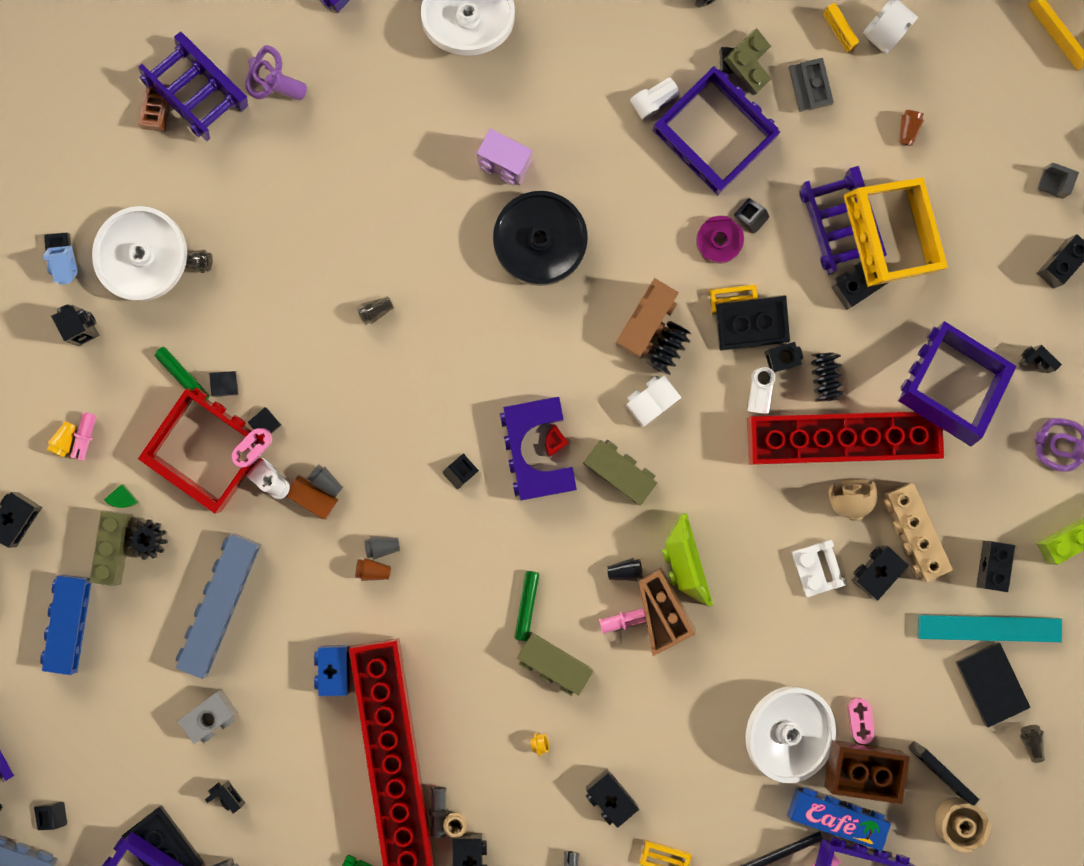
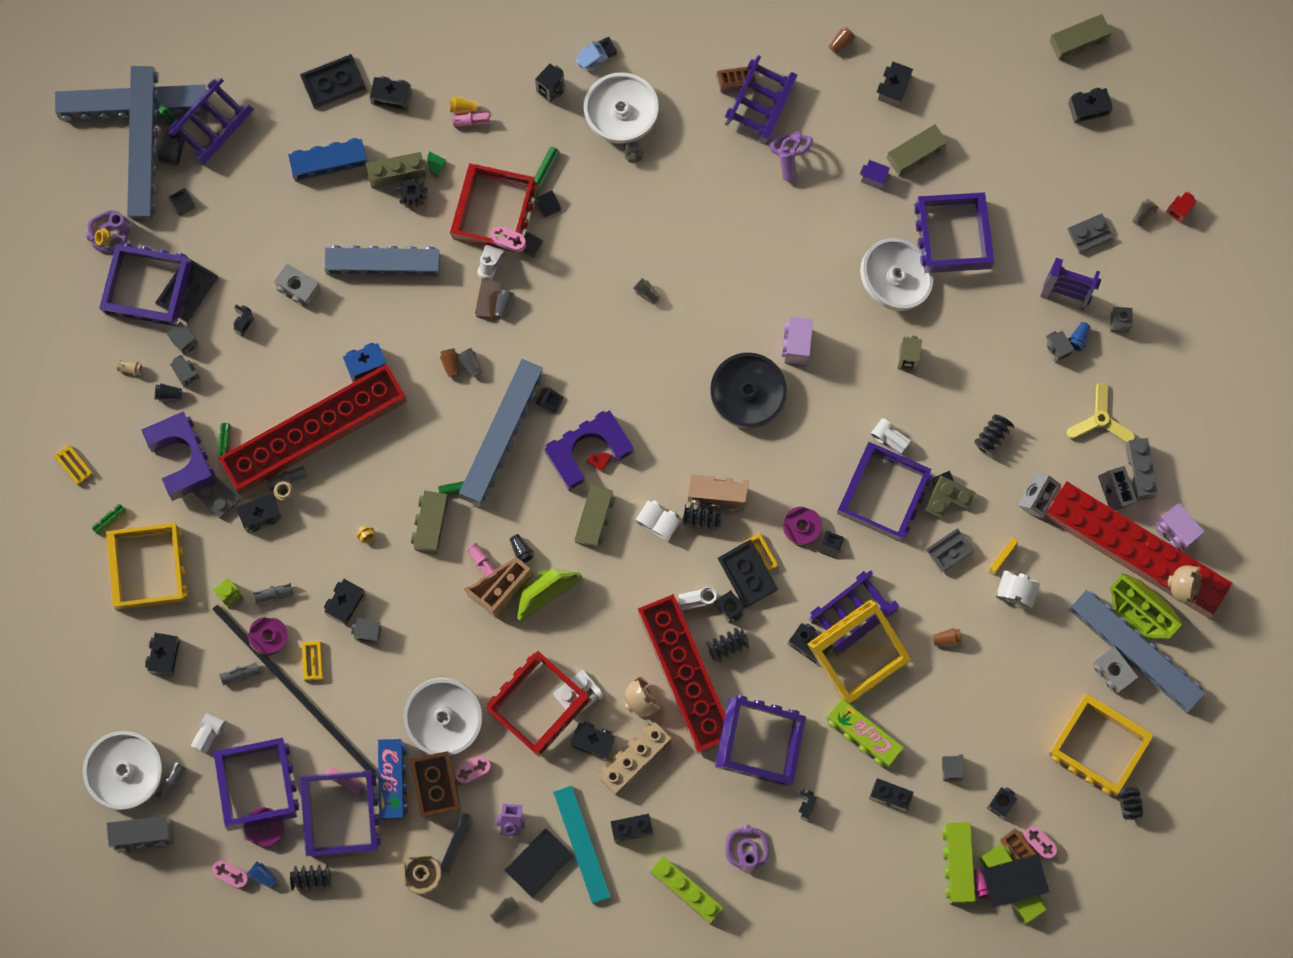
camera: 75 degrees right, 10 degrees down
(480, 542) = (501, 431): none -> sand blue brick
(568, 35) = (909, 353): none -> olive brick
(655, 784) = (366, 630): none -> dark grey brick
(835, 658) = (560, 724): none -> red window
(938, 699) = (511, 820): none -> medium lavender brick
(984, 263) = (864, 733): none -> lime brick

